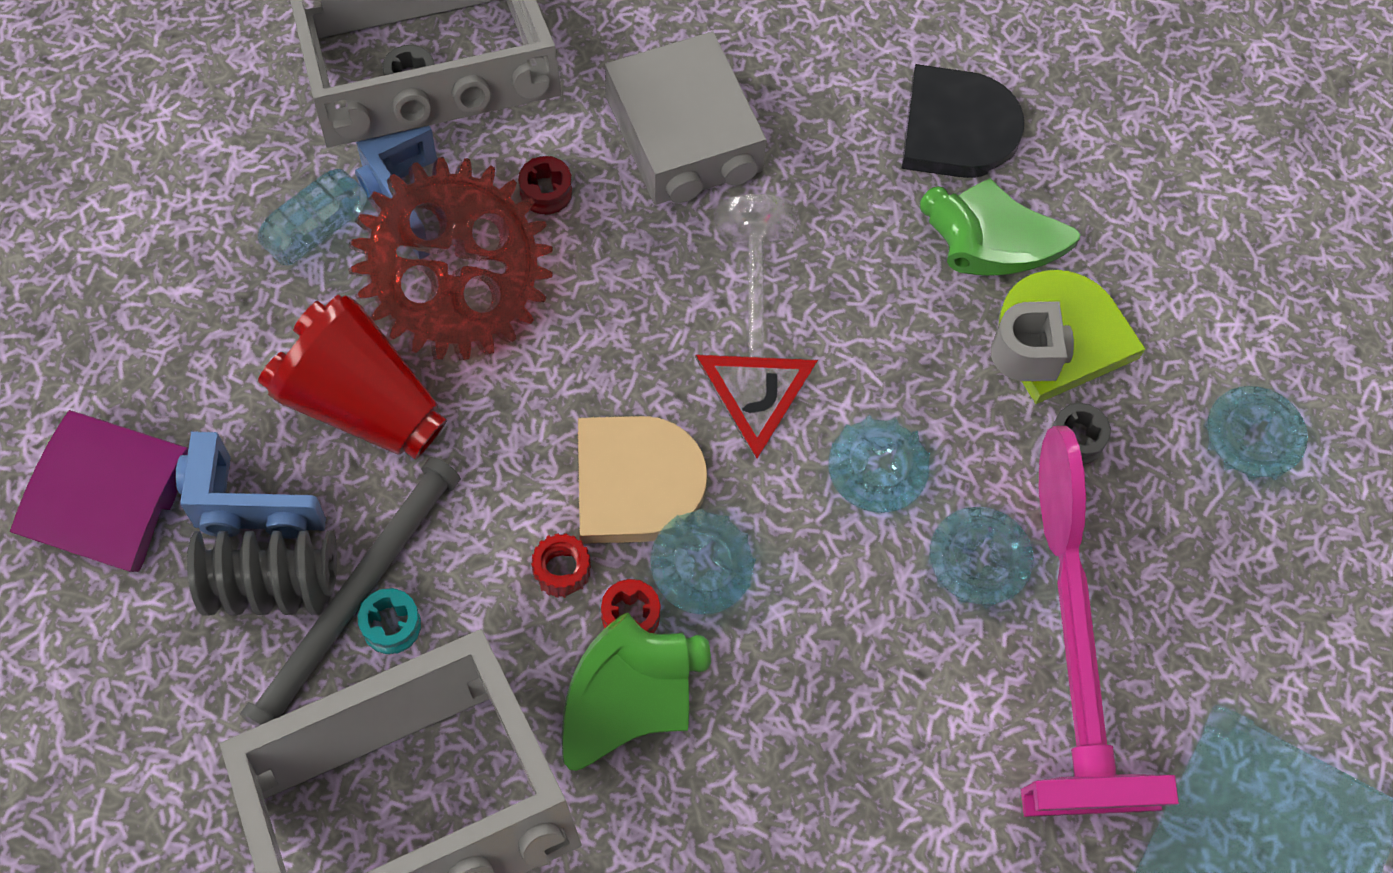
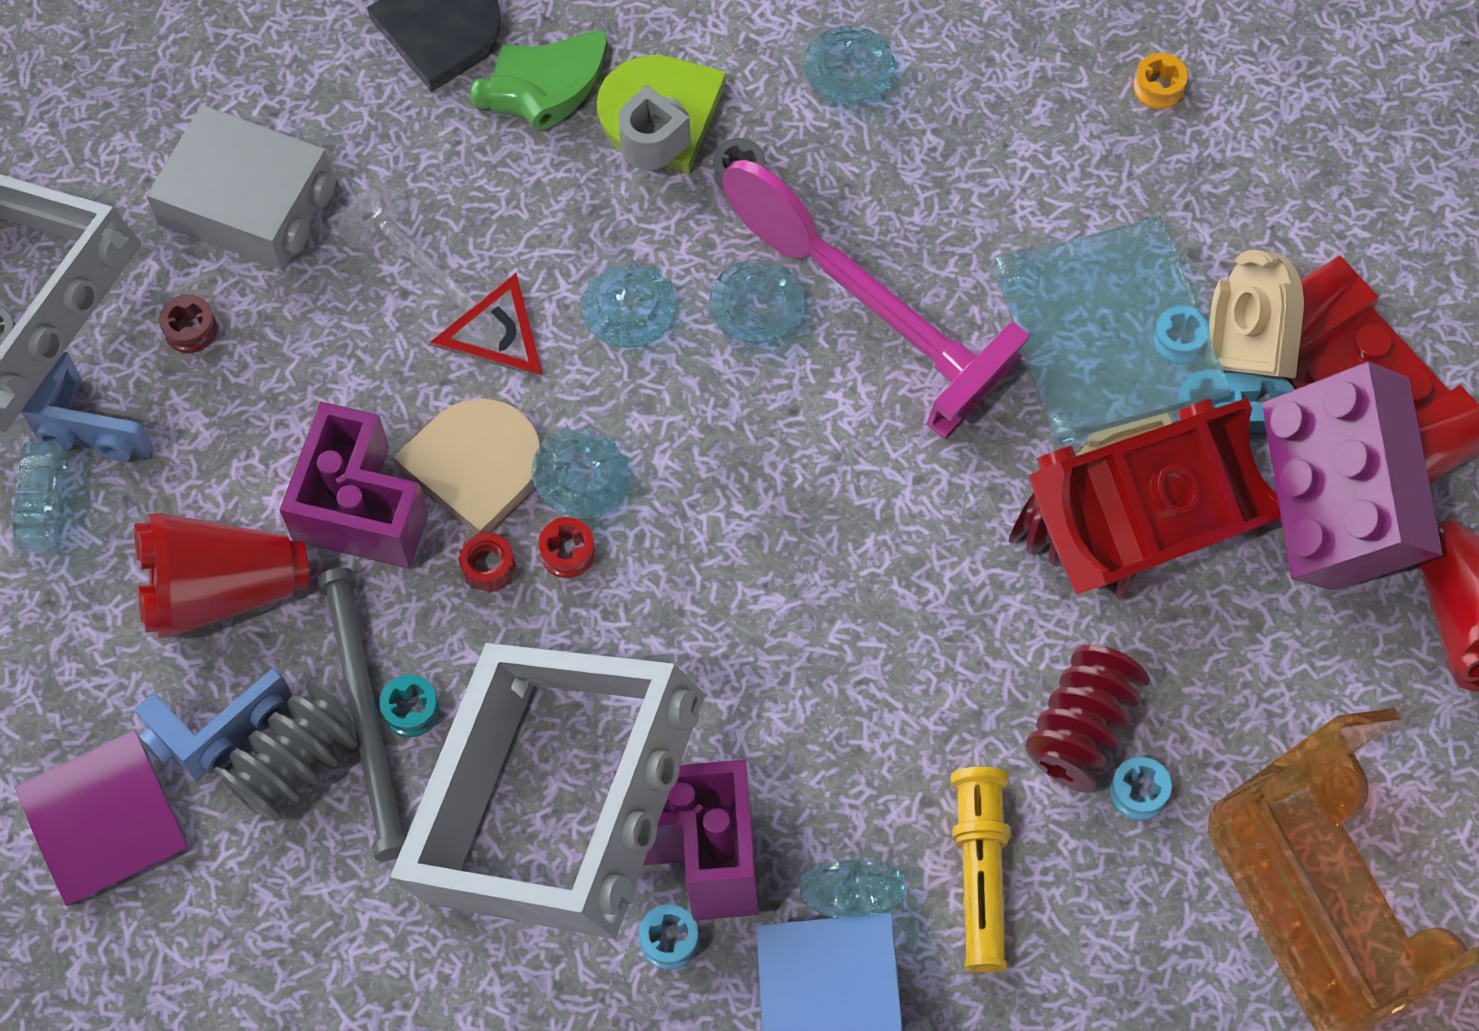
camera: 40 degrees left, 0 degrees up
(457, 203) = (156, 381): clear red gear -> none
(504, 407) = (341, 497): none -> magenta brick
(628, 688) = (619, 588): bright green arm -> none

